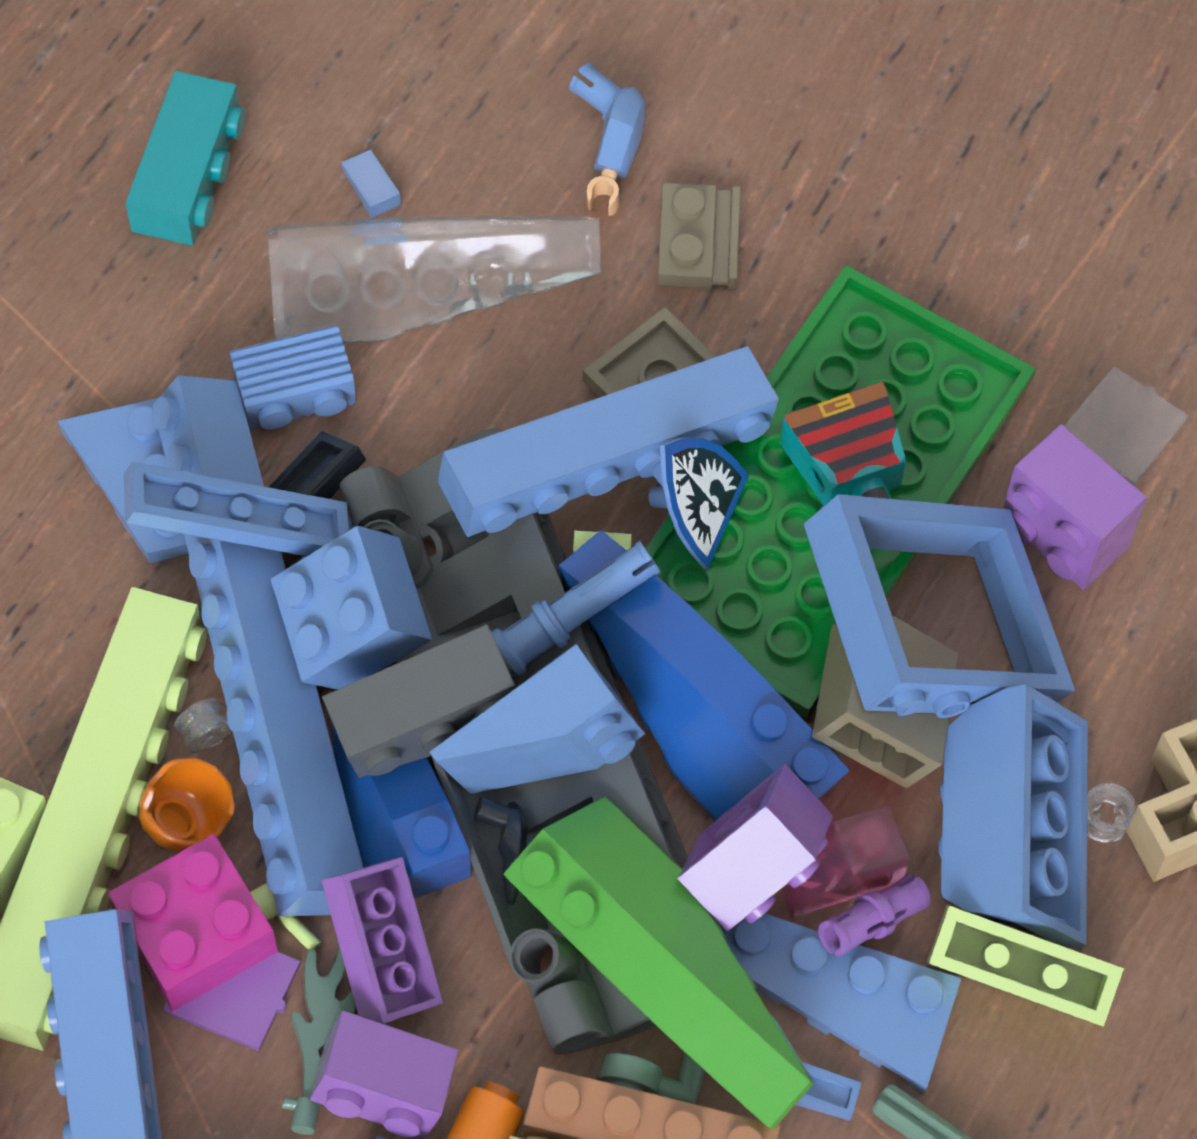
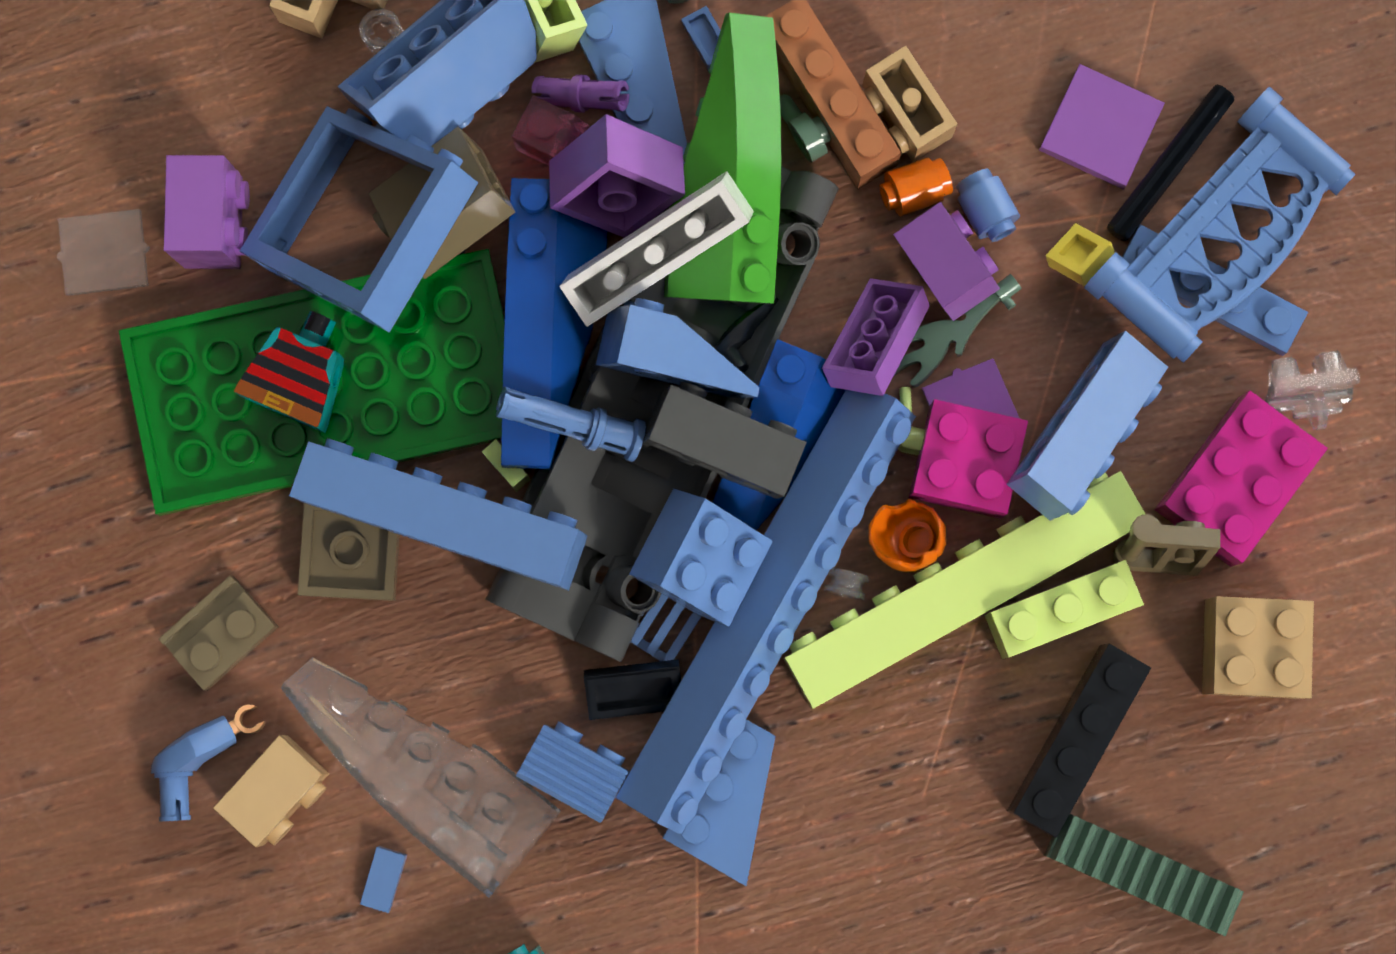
camera: 130 degrees left, 20 degrees up
(230, 510) = (714, 683): medium blue plate -> none
(526, 157) = (272, 792): none -> tan brick
(648, 799) = (657, 249): none -> white brick
(699, 490) = (418, 433): shield -> none

